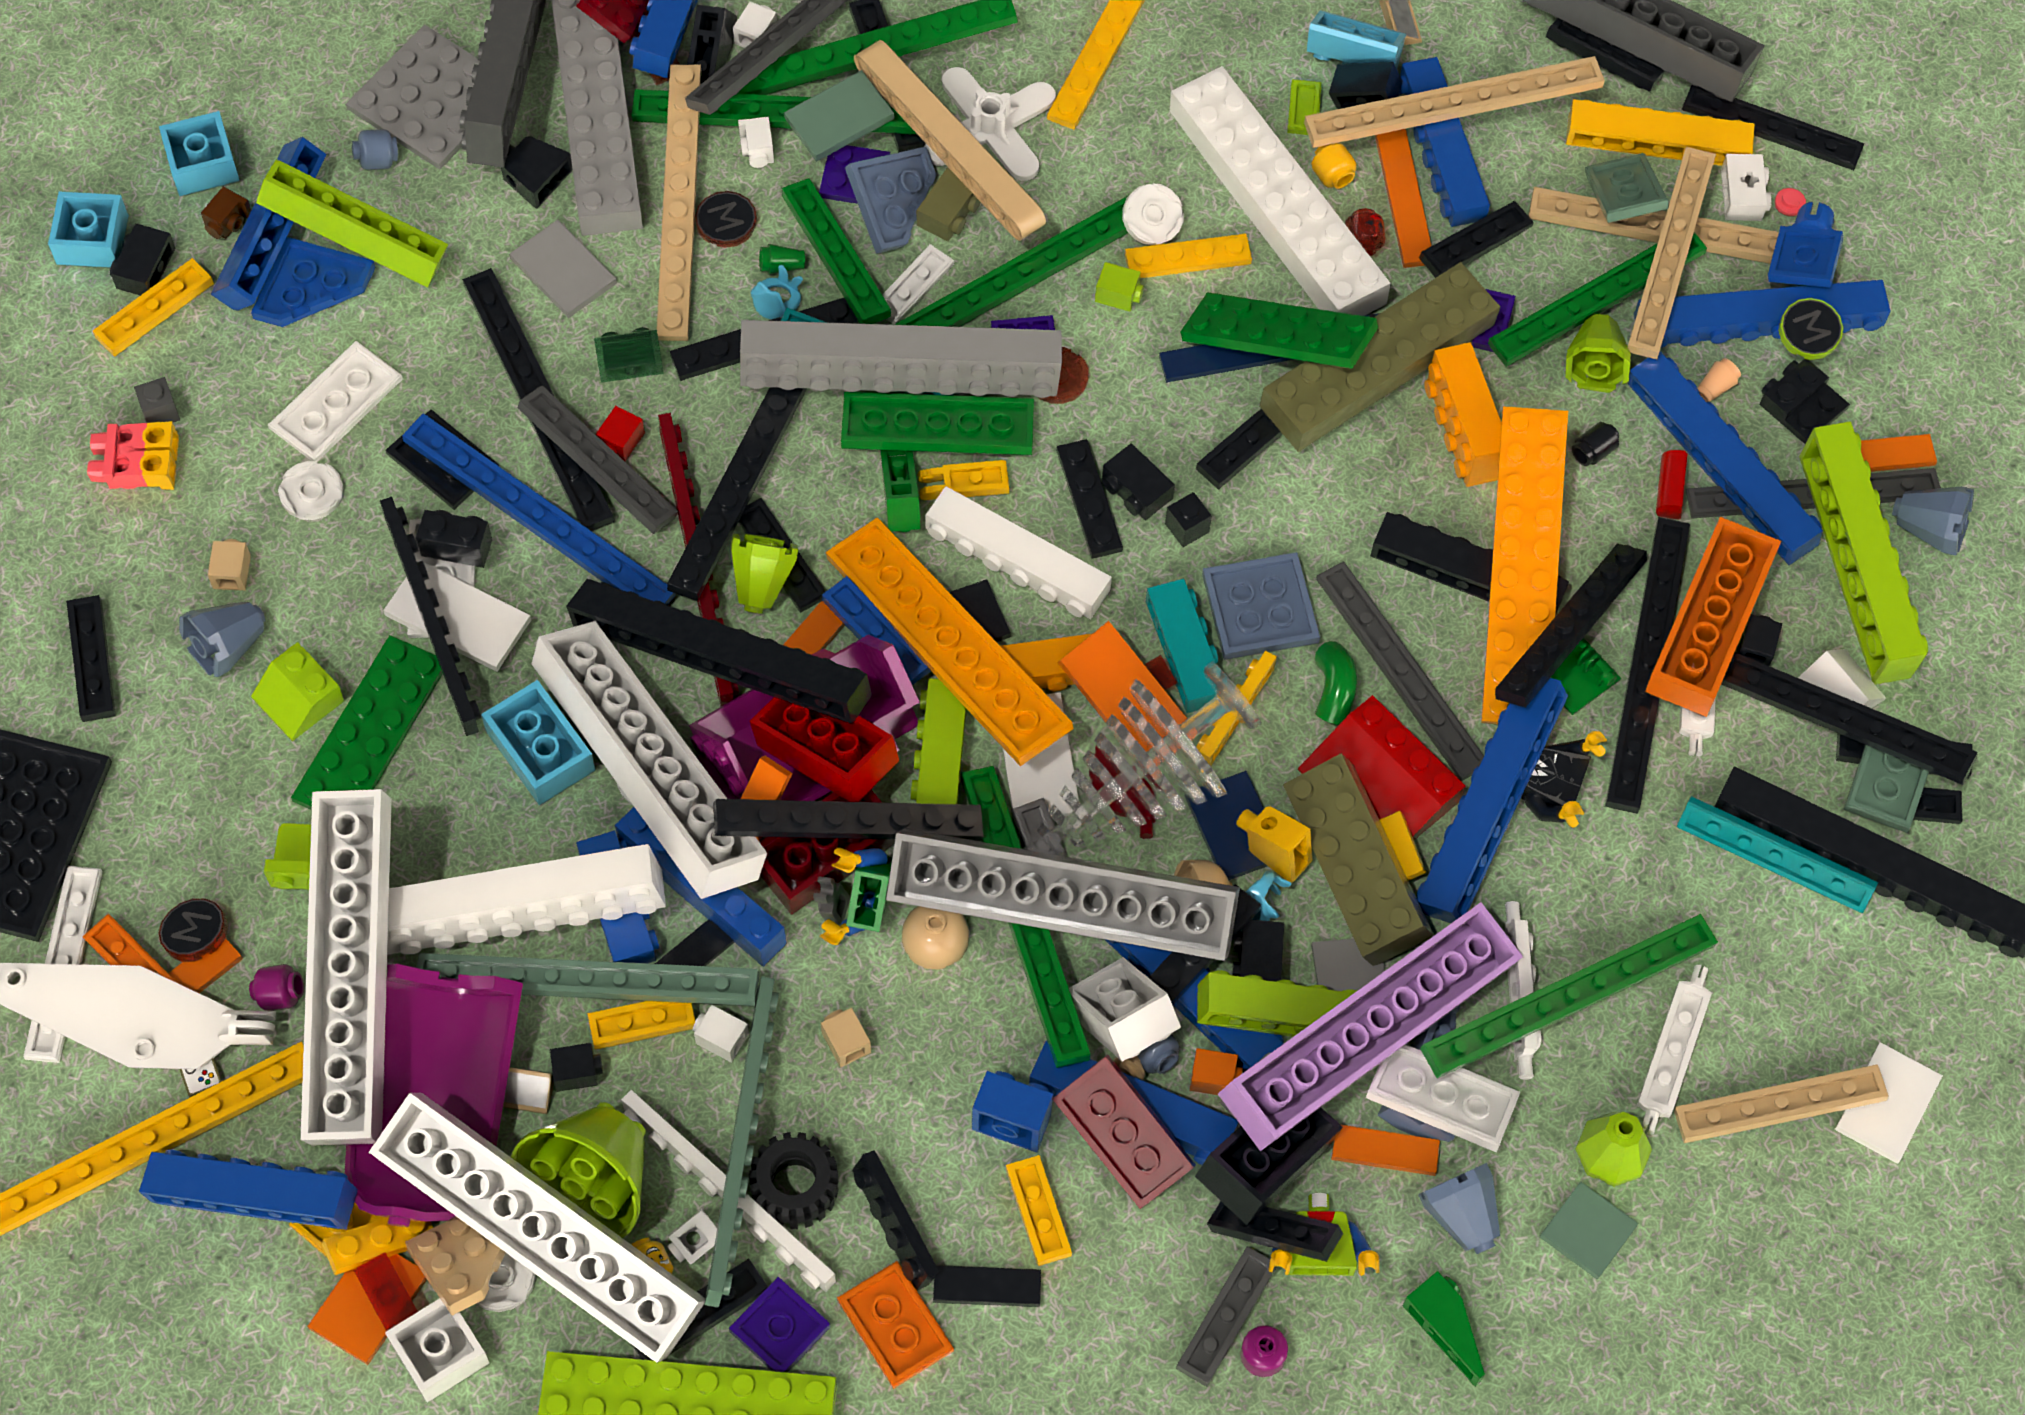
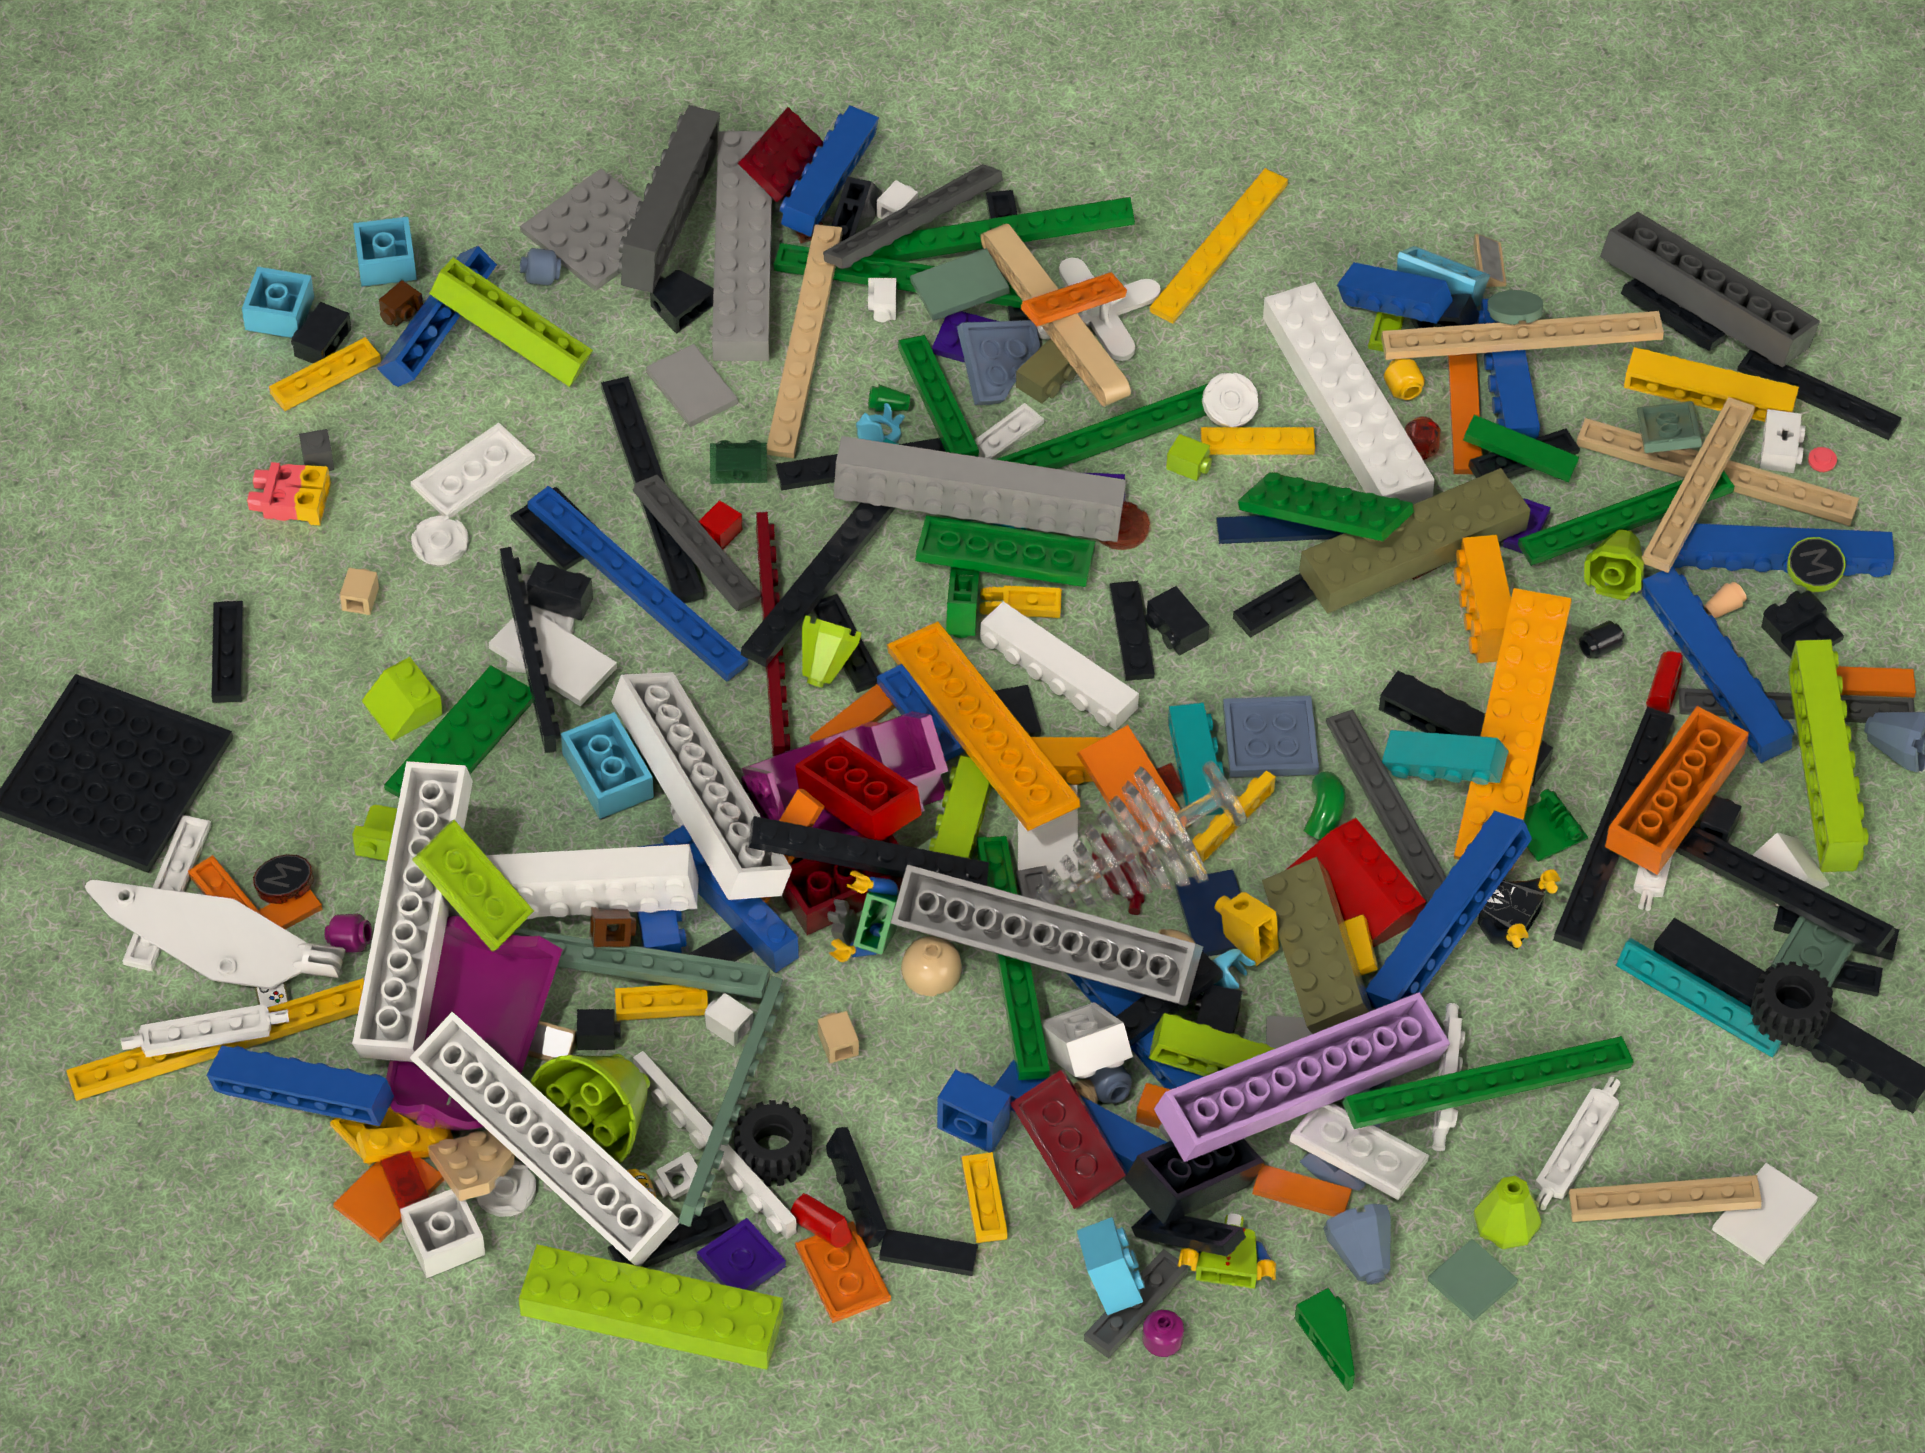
camera: 10 degrees right, 10 degrees down
(129, 1136) = (205, 1030): none -> white plate
(224, 630) = (344, 641): sand blue cone -> none
(308, 281) = (465, 368): blue plate -> none
(410, 929) = (473, 885): none -> lime tile
(573, 945) = (615, 936): none -> reddish brown brick
(722, 651) = (781, 707): black brick -> none
(726, 219) = (844, 361): black tile -> none
(863, 1271) = (821, 1220): none -> red brick
(968, 121) = (1073, 299): none -> orange tile
(1188, 519) = (1217, 656): black brick -> none
(1196, 1283) = (1111, 1265): none -> medium azure brick
(1310, 68) = (1395, 292): none -> blue brick
(1442, 69) = (1515, 305): none -> sand green tile
(1457, 610) = (1445, 757): none -> teal brick
(1473, 232) = (1521, 448): none -> green tile
(1570, 625) = (1545, 780): black plate -> none
(1807, 249) = (1825, 498): blue plate -> none
(1892, 835) = (1797, 984): none -> black tyre

